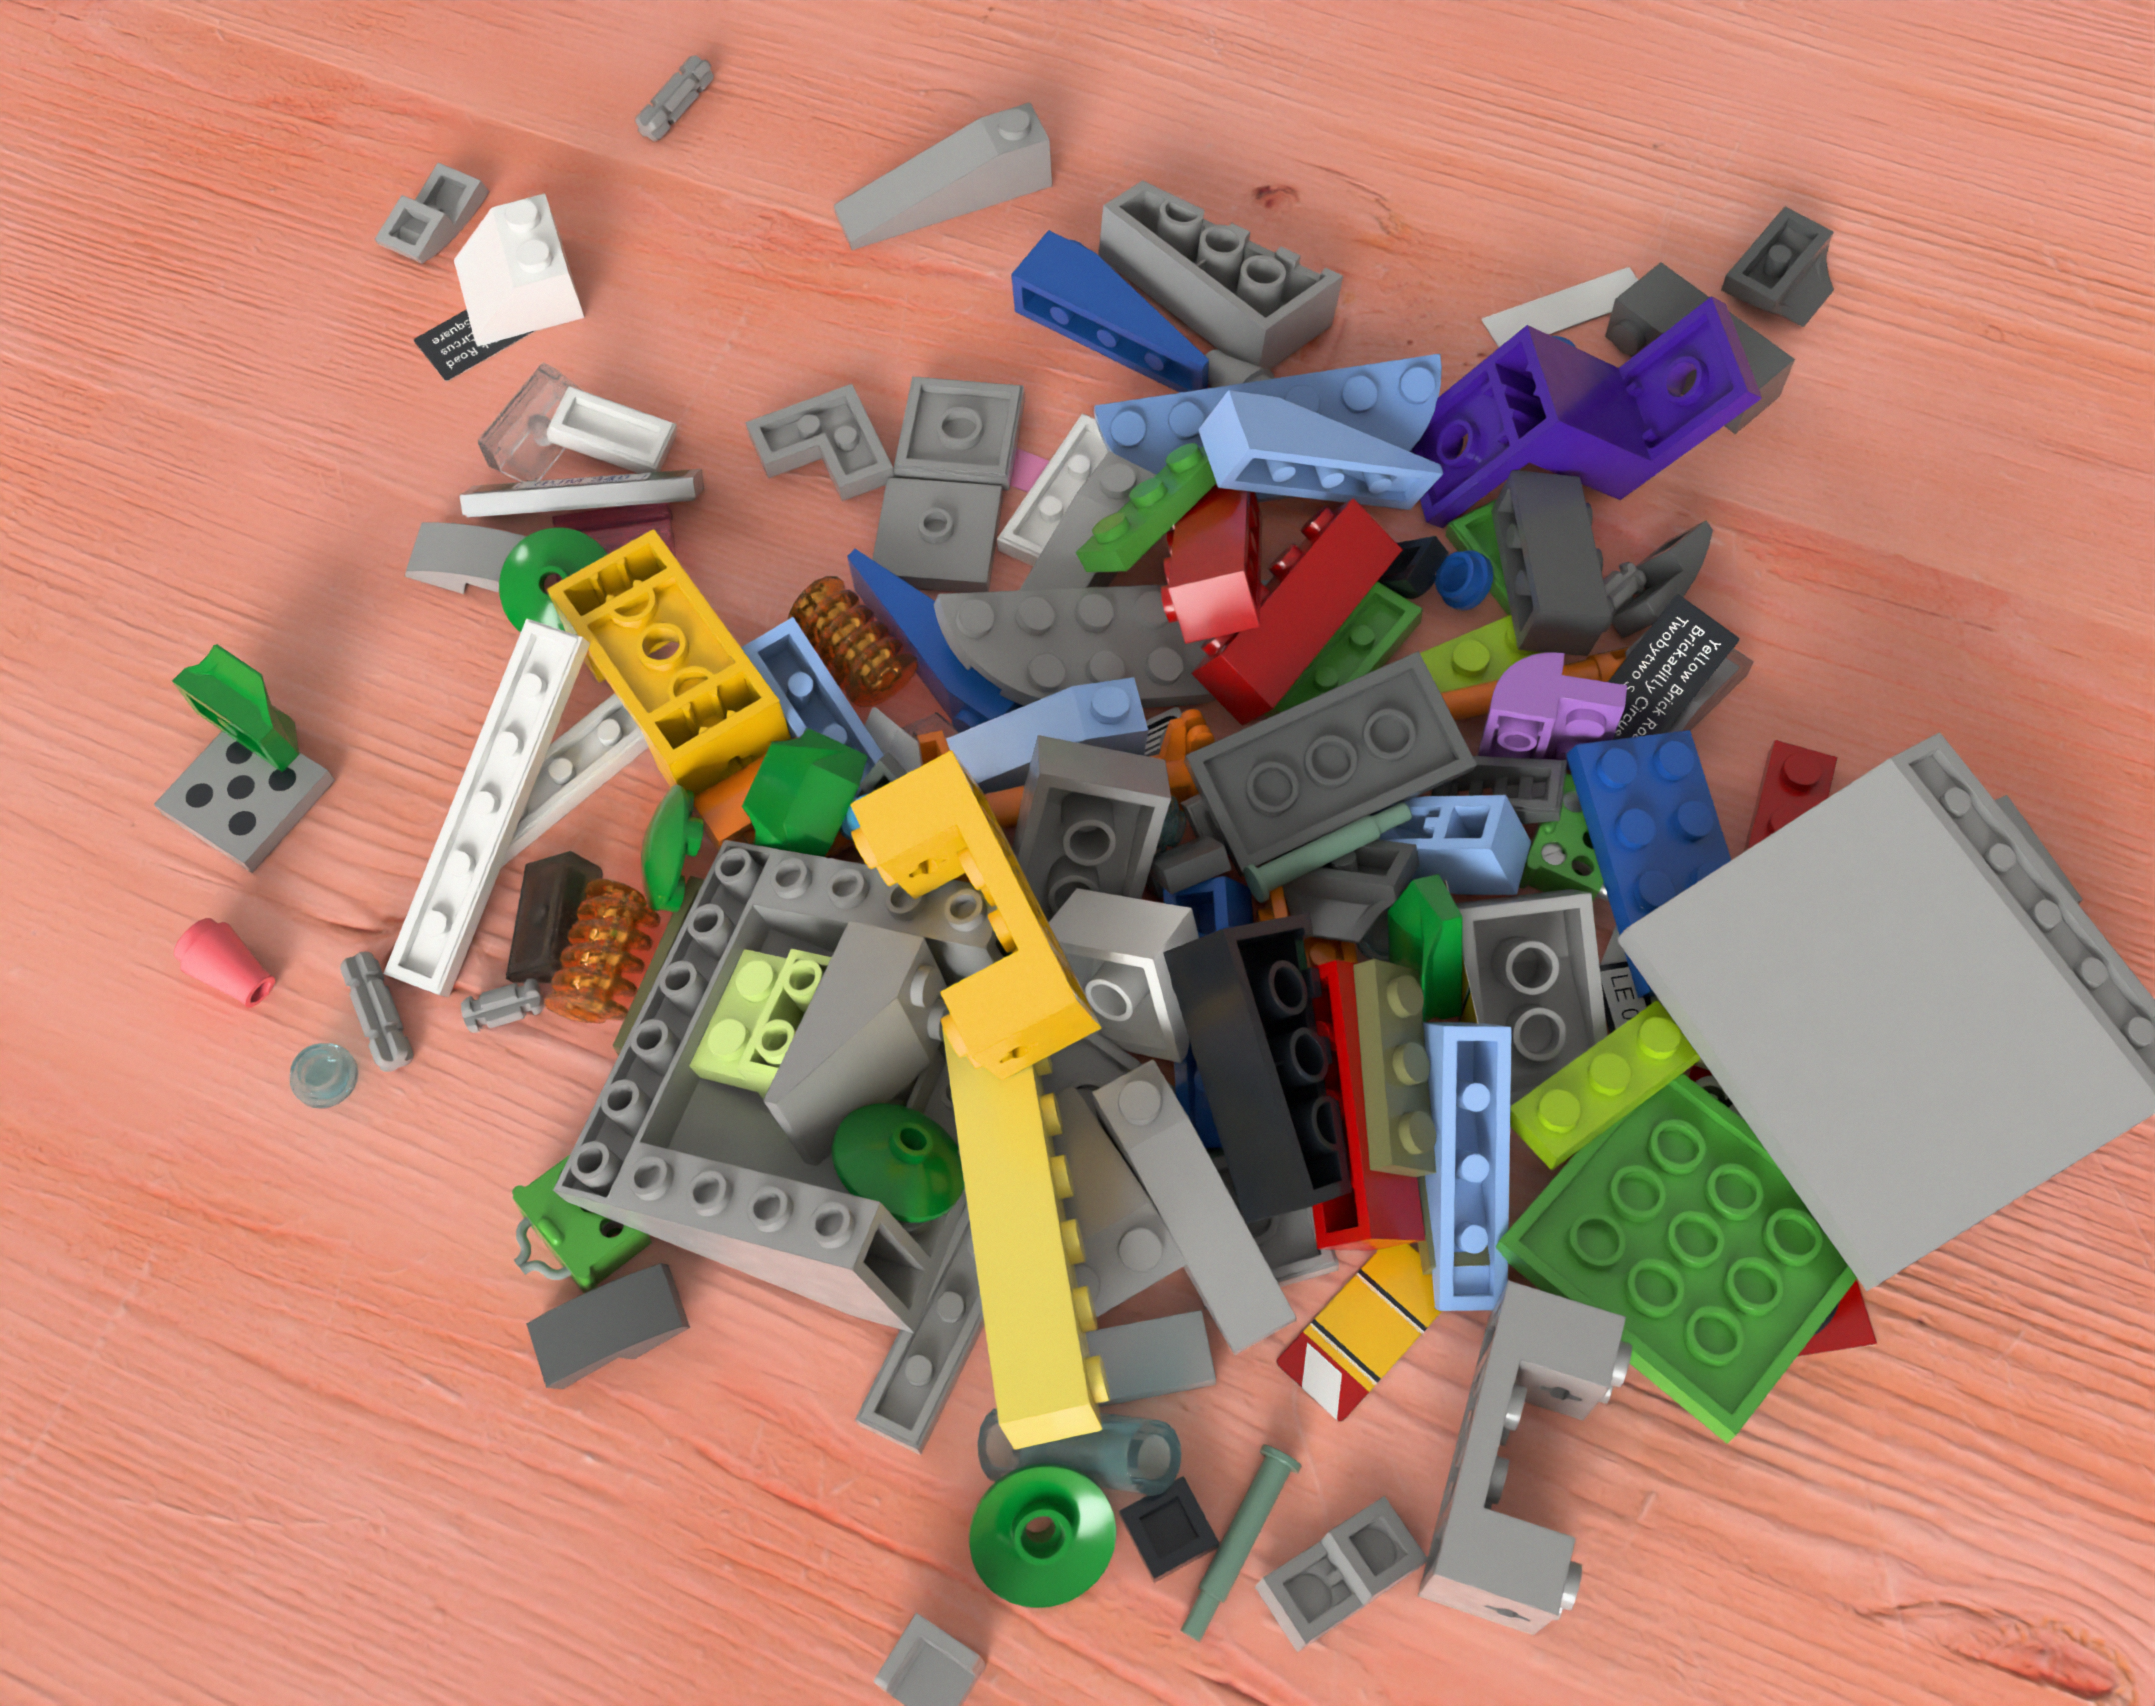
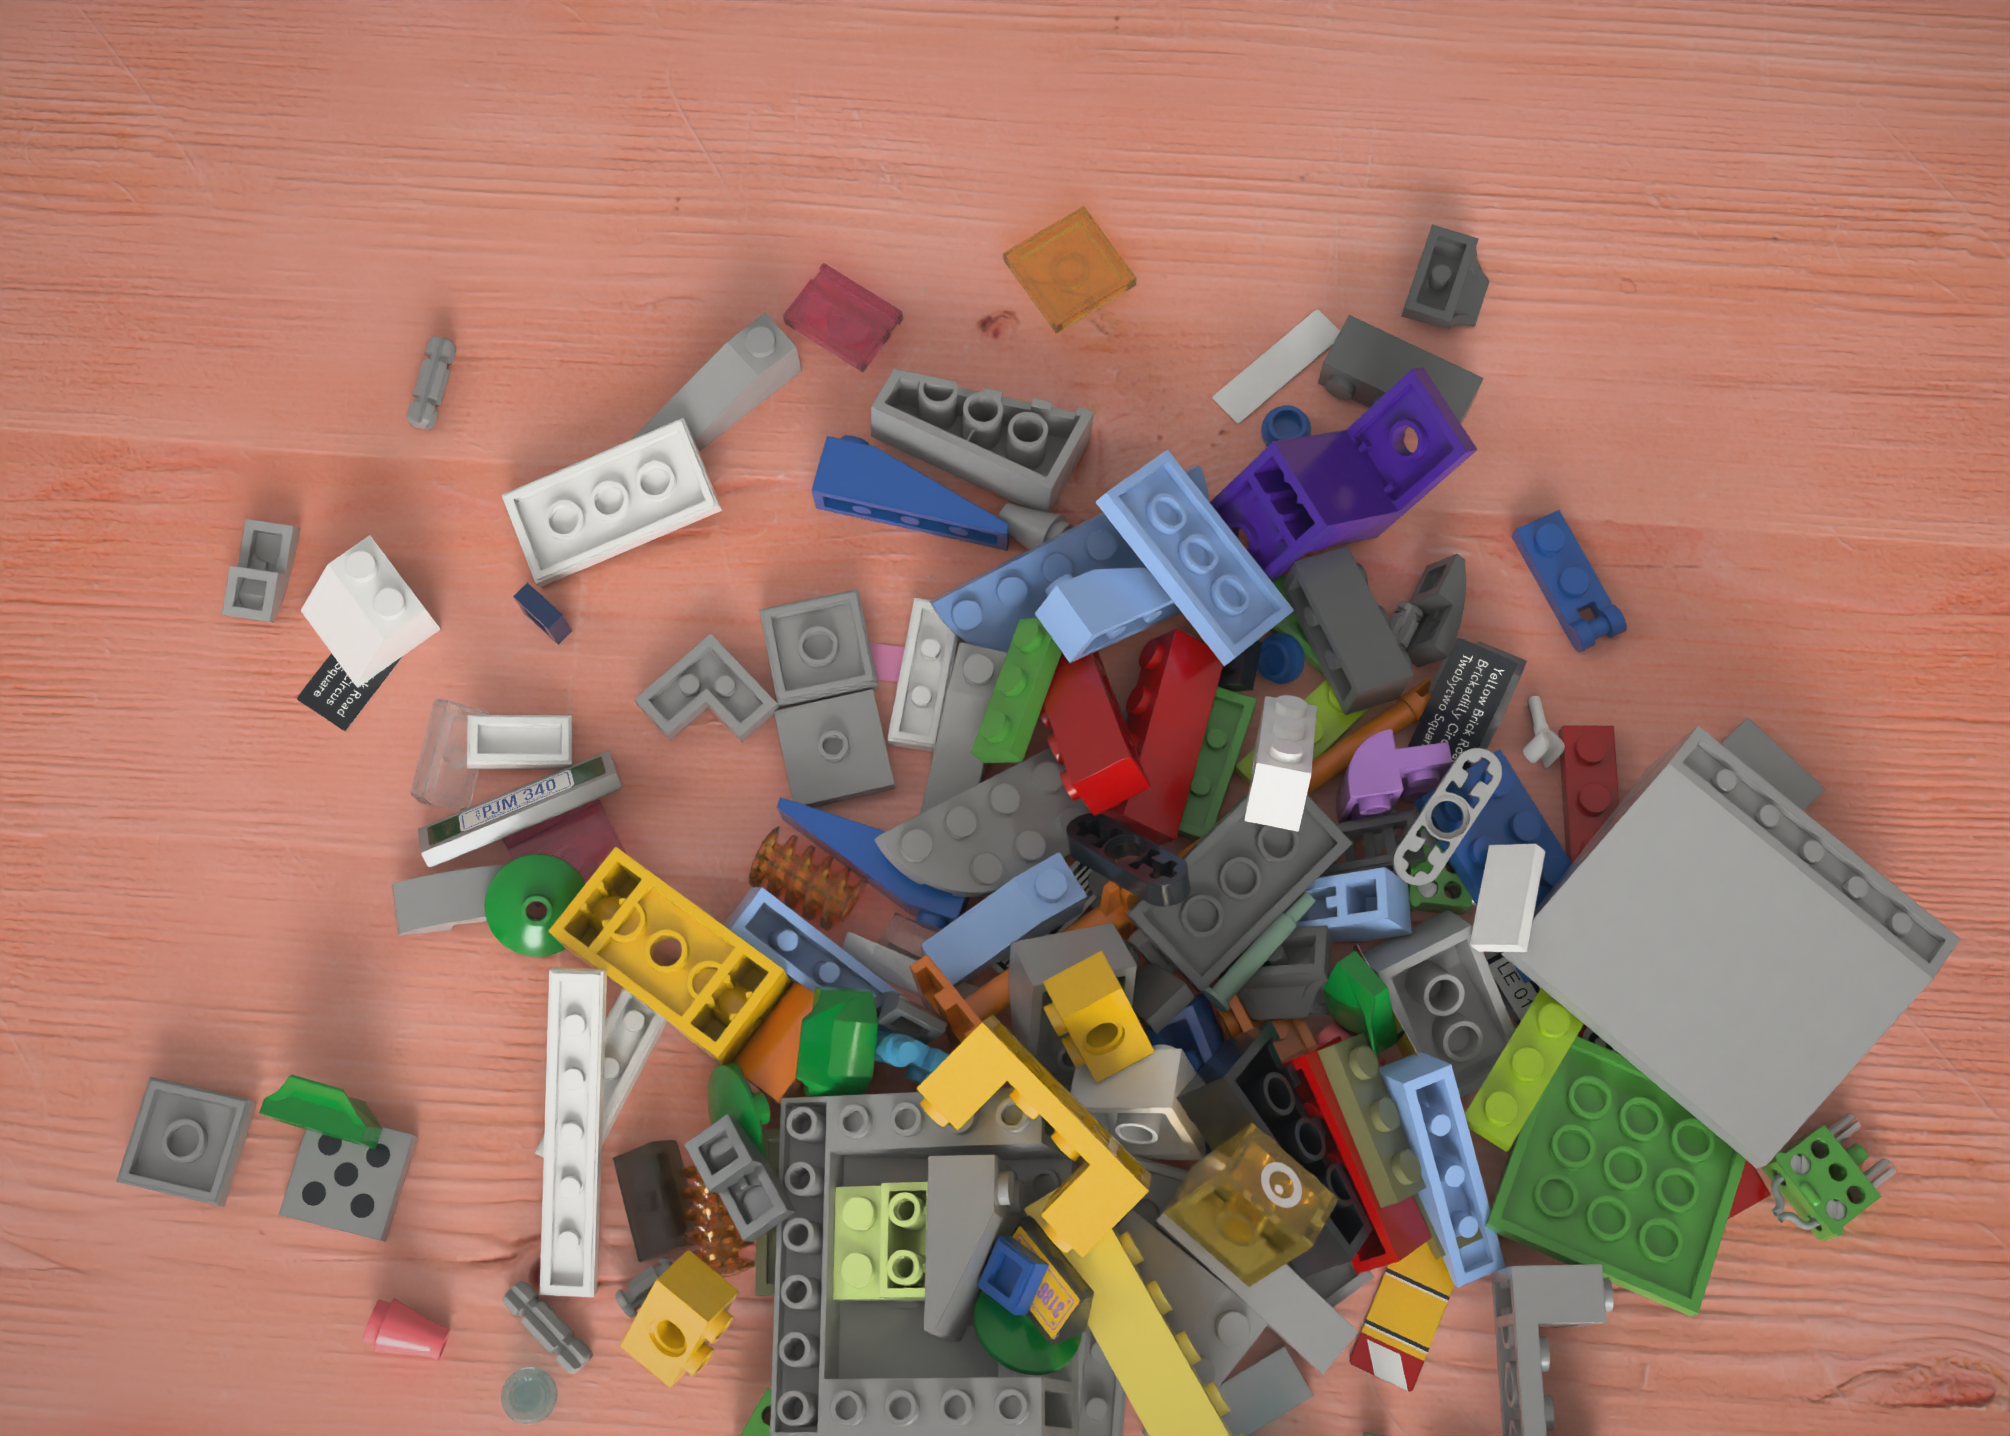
camera: 20 degrees left, 10 degrees up
(98, 706) = (186, 1141): none -> light grey plate
(513, 1034) = (680, 1319): none -> yellow brick
(642, 897) = (741, 1176): none -> dark grey slope
(688, 321) = (542, 613): none -> dark blue tile
(804, 242) = (611, 502): none -> white tile
(896, 1089) = (1012, 1275): none -> blue tile
(930, 1111) = (1063, 1296): none -> slope
(1101, 802) = (1097, 1016): none -> yellow brick
(1113, 145) = (843, 317): none -> clear pink plate
(1204, 1087) = (1251, 1205): none -> clear yellow brick
(1208, 699) = (1155, 876): none -> black beam
(1370, 162) = (1069, 269): none -> clear yellow tile
(1399, 428) = (1195, 556): none -> light blue plate
(1420, 646) = (1282, 762): none -> white arch
(1625, 723) = (1458, 777): none -> light grey beam
(1644, 873) = (1507, 898): none -> white tile
(1747, 752) = (1545, 744): none -> white hand
(1830, 598) = (1568, 580): none -> blue plate
(1952, 1342) = (1811, 1190): none -> bright green piece

